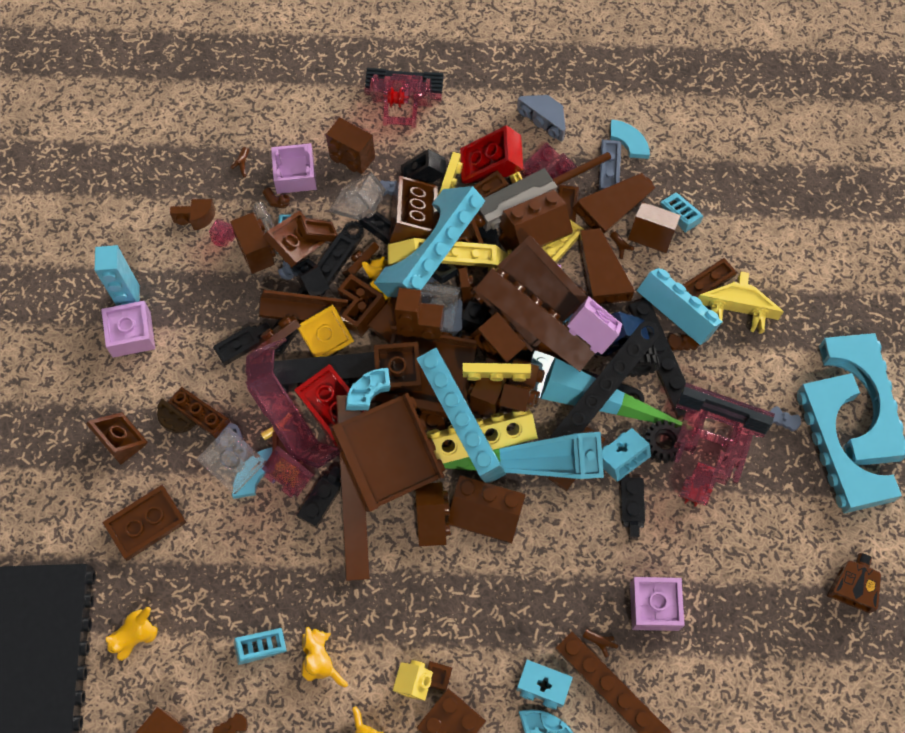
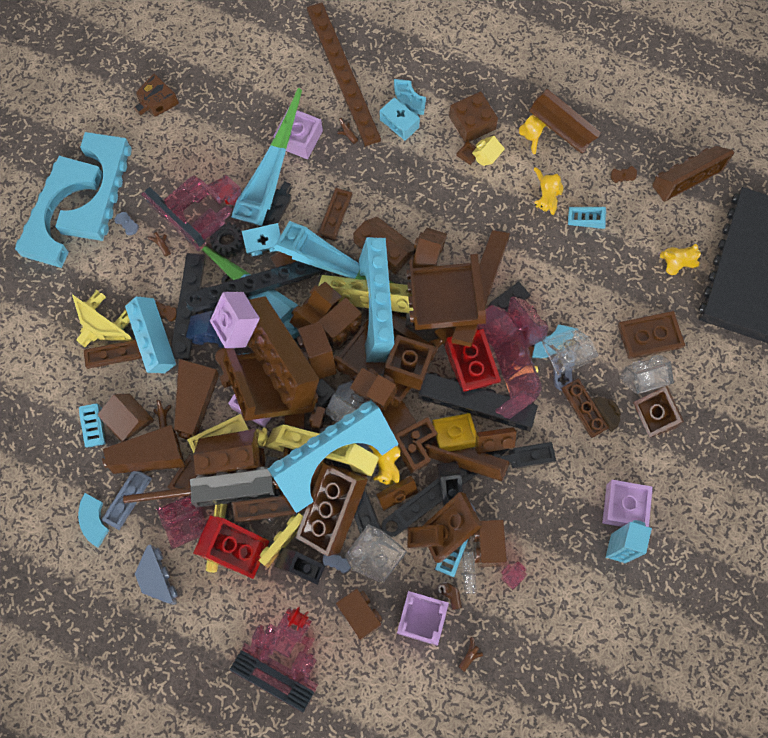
camera: 155 degrees left, 5 degrees up
(137, 461) = (648, 374): none -> clear slope
(198, 214) = (530, 605): reddish brown brick -> none
(366, 388) = (443, 340): medium azure tile -> none
(496, 371) = (332, 316): light yellow plate -> none
(561, 526) = (335, 214): none -> reddish brown tile
(659, 503) = (259, 192): none -> medium azure plate

